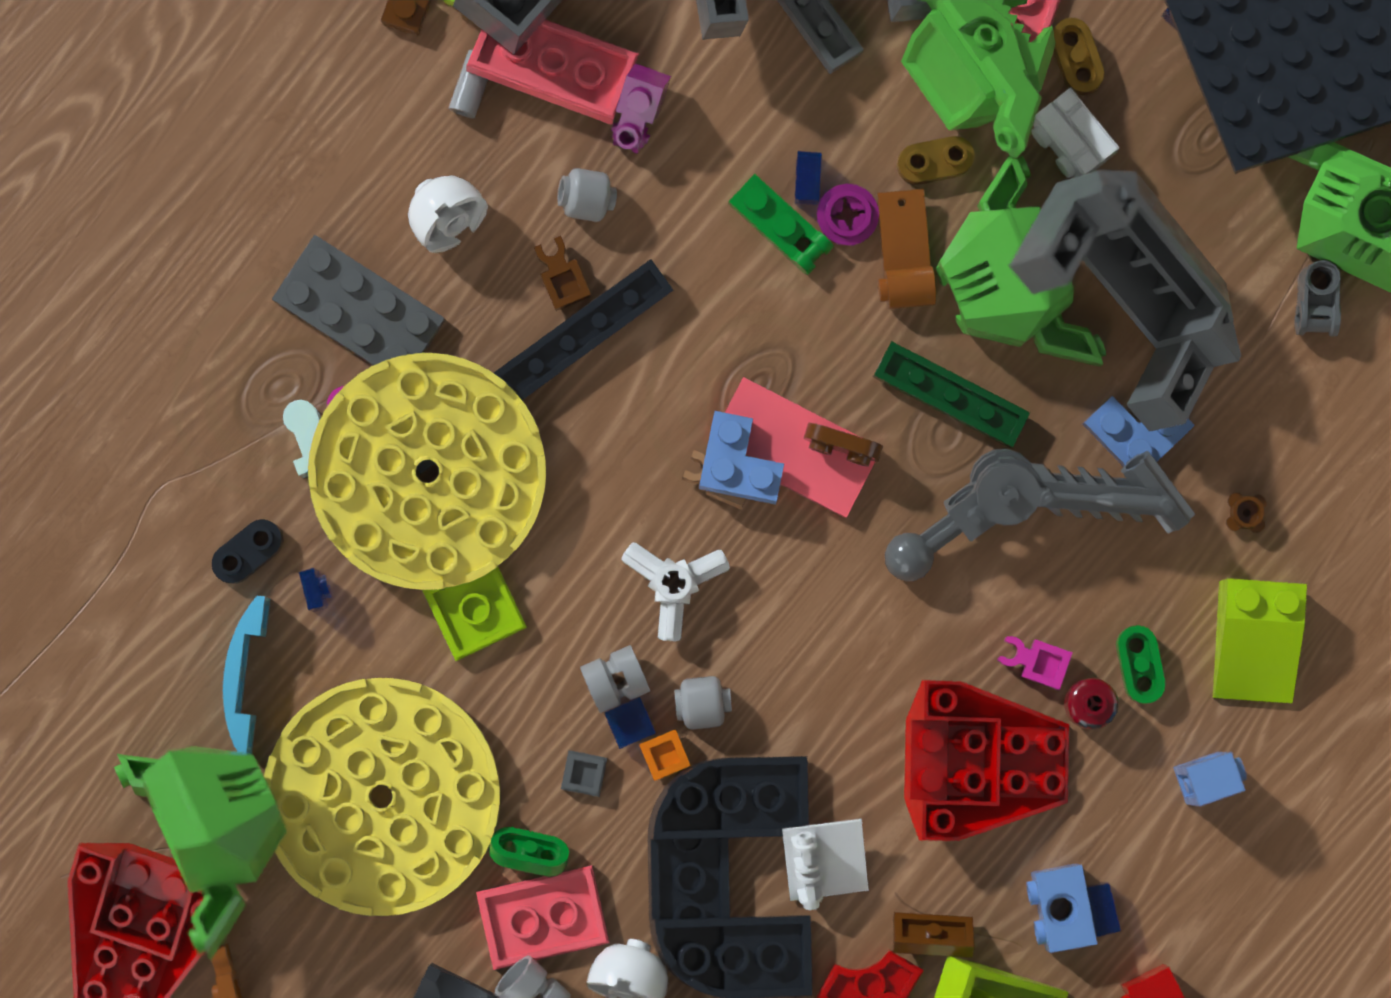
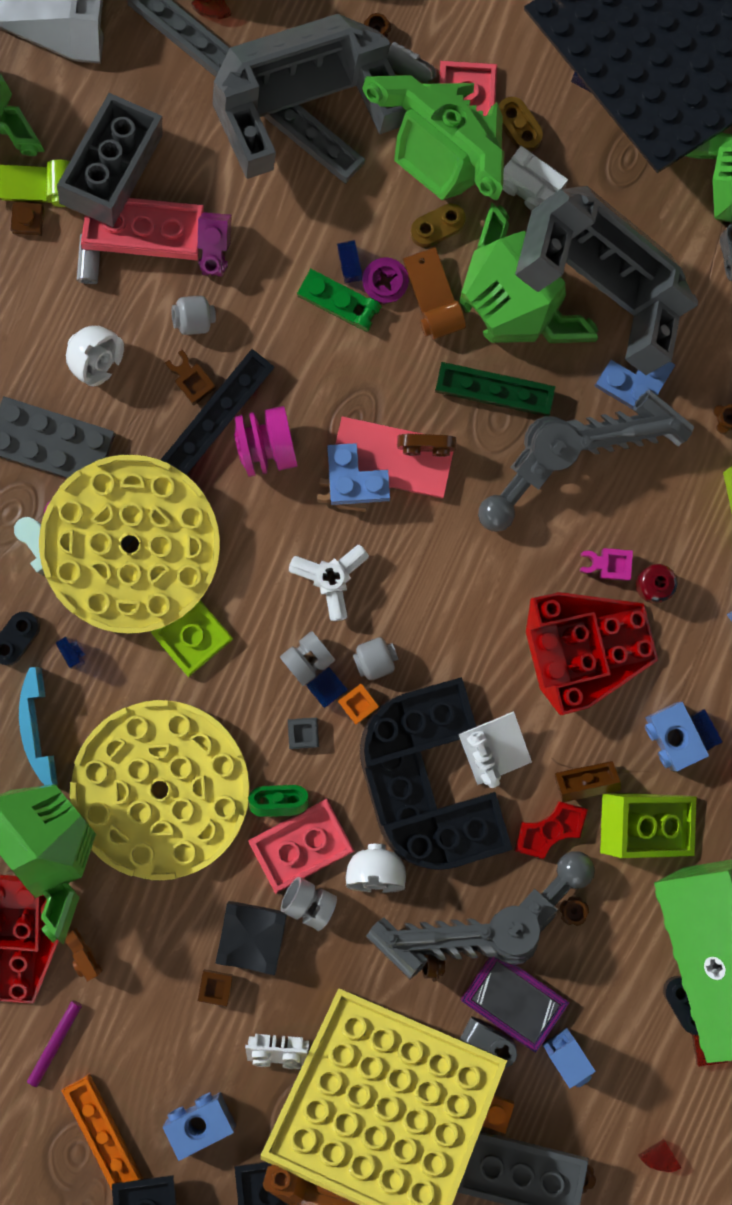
camera: 15 degrees left, 0 degrees up
(636, 385) = (265, 441): none -> dark pink wheel
(1144, 663) = (686, 545): green plate -> none

